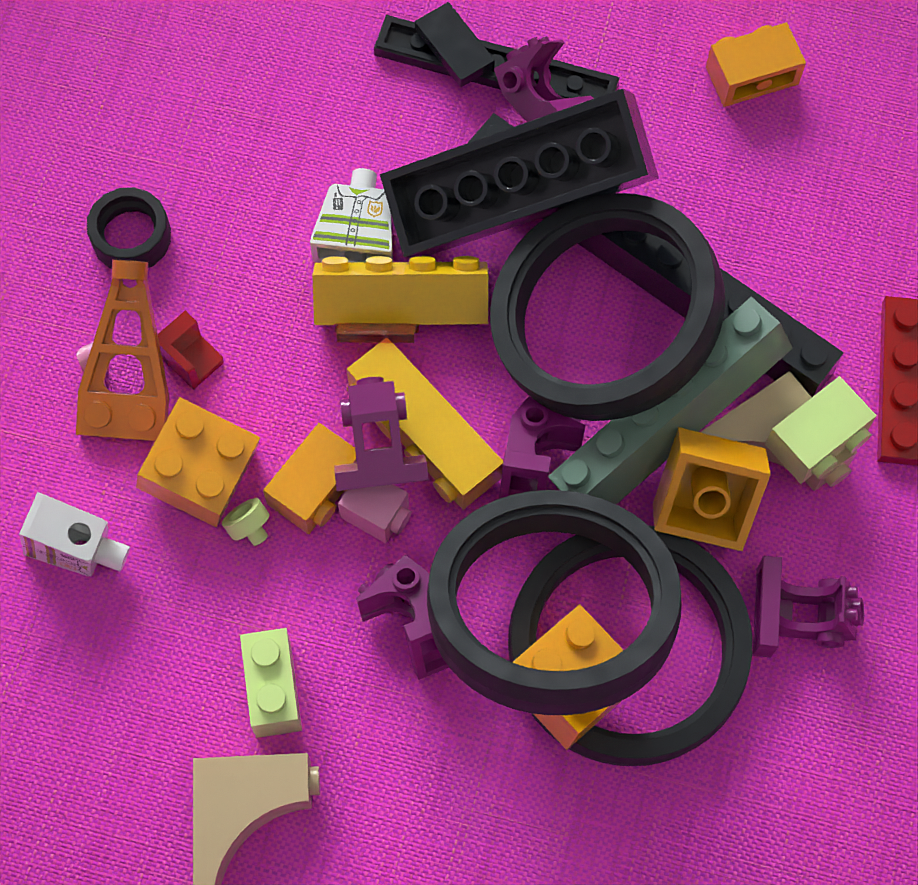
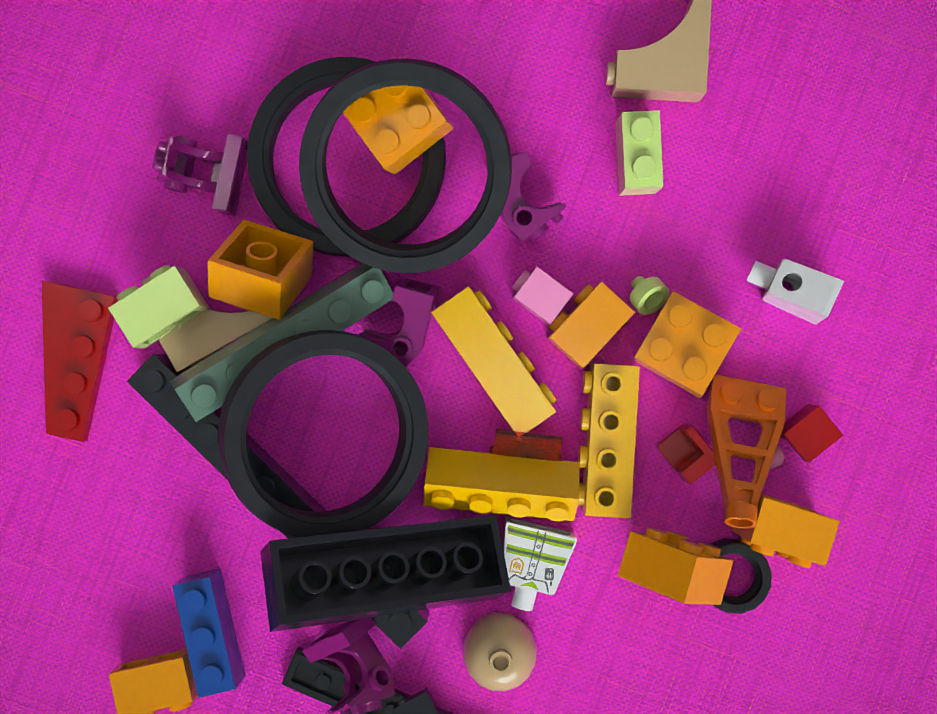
camera: 165 degrees left, 20 degrees up
(48, 385) = (810, 432): none -> red panel
(69, 273) = (791, 531): none -> light orange brick
(198, 217) = (676, 566): none -> light orange brick
(280, 356) = (609, 441): none -> yellow brick
(373, 402) = (537, 359): magenta tile -> none
(384, 129) = (499, 651): none -> tan cylinder
(706, 117) = (209, 632): none -> blue brick

